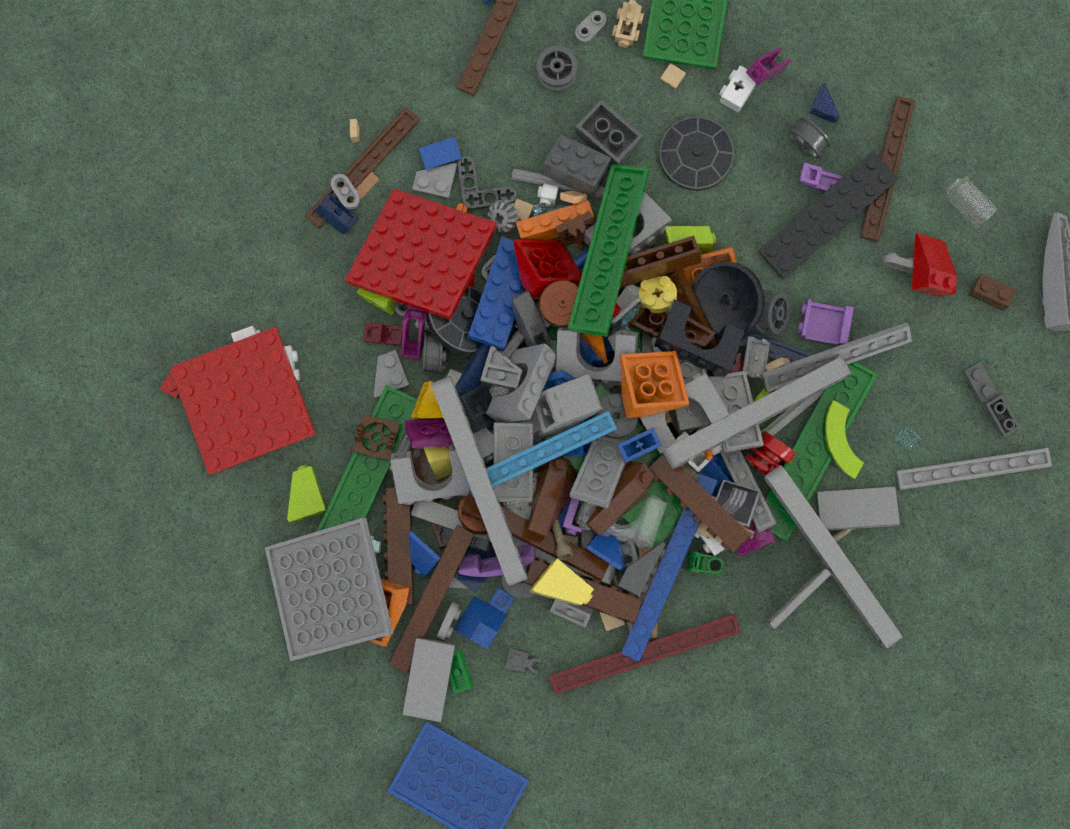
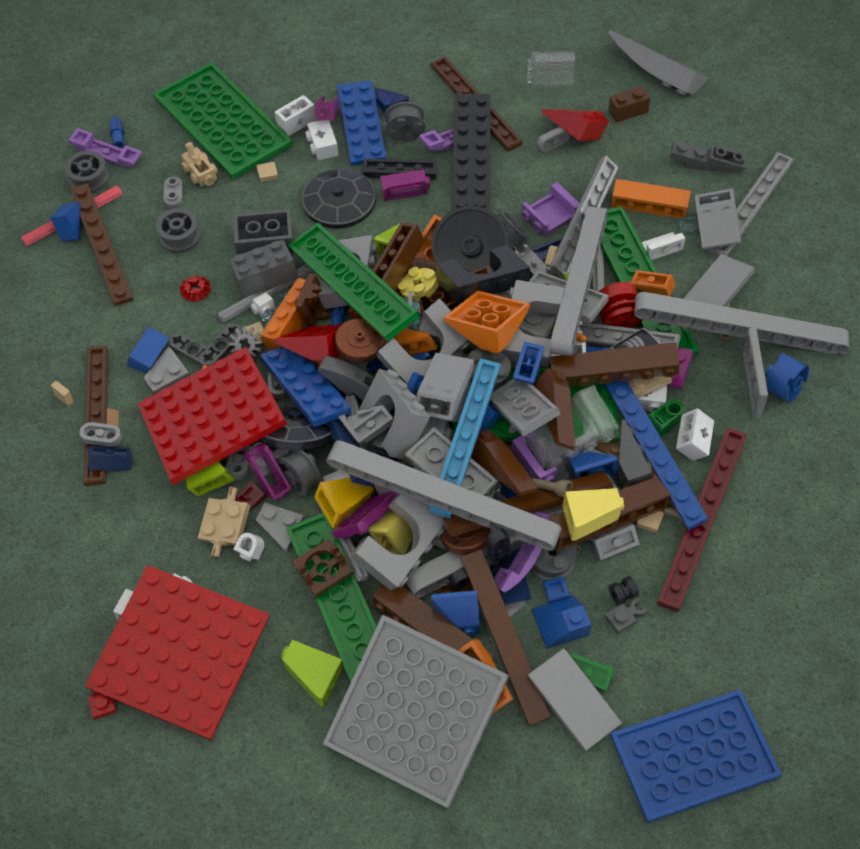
camera: 50 degrees left, 25 degrees down
(353, 373) = (249, 546): none -> white plate
(356, 338) = (223, 521): none -> tan plate
(452, 614) = (533, 636): light grey plate -> none
(516, 136) = (195, 294): none -> red gear
(533, 646) = (625, 589): none -> black wheel
(573, 197) = (284, 287): light nougat tile -> none
(706, 597) = (695, 434): none -> white brick
(741, 47) = (295, 115): none -> white brick
(750, 192) = (404, 184): none -> magenta window
(765, 173) = (383, 167): none -> black plate
(786, 100) = (361, 122): none -> blue plate
(814, 624) = (786, 377): none -> blue brick
(819, 459) = (654, 282): none -> orange slope
(837, 441) = (649, 262): lime tile -> none
(868, 433) = (664, 245): none -> white panel
(906, 389) = (650, 198): none -> orange brick
(925, 459) = (717, 219): none -> light grey slope

